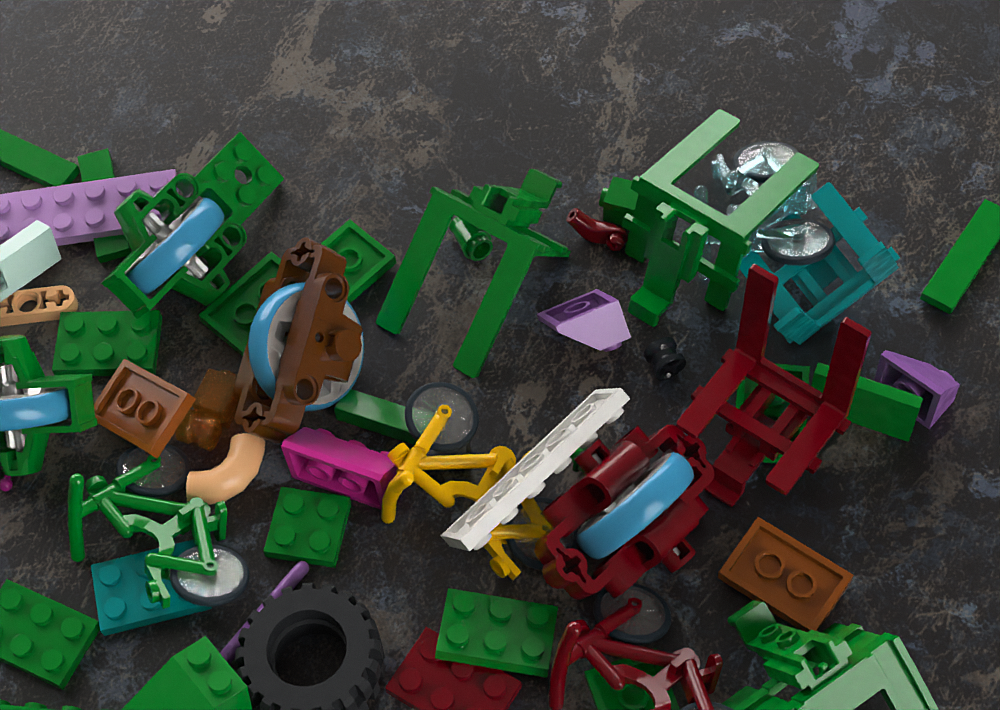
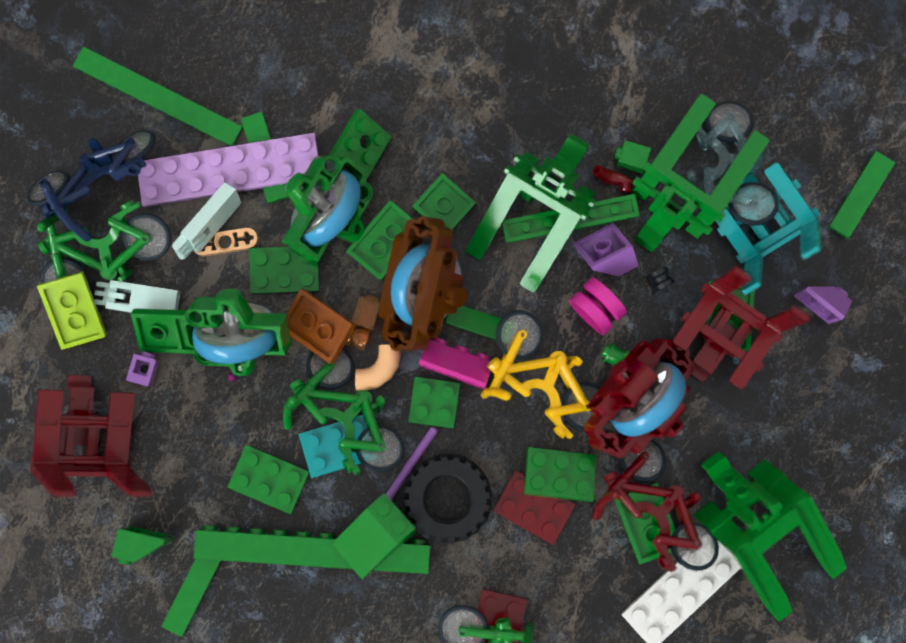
camera: 10 degrees left, 25 degrees up
(527, 476) = (584, 378): white plate -> none
(541, 279) = (541, 223): none -> green plate
(561, 380) = (597, 306): none -> dark pink wheel
(785, 575) = (736, 431): dark orange plate -> none
(878, 405) = (772, 307): green tile -> none

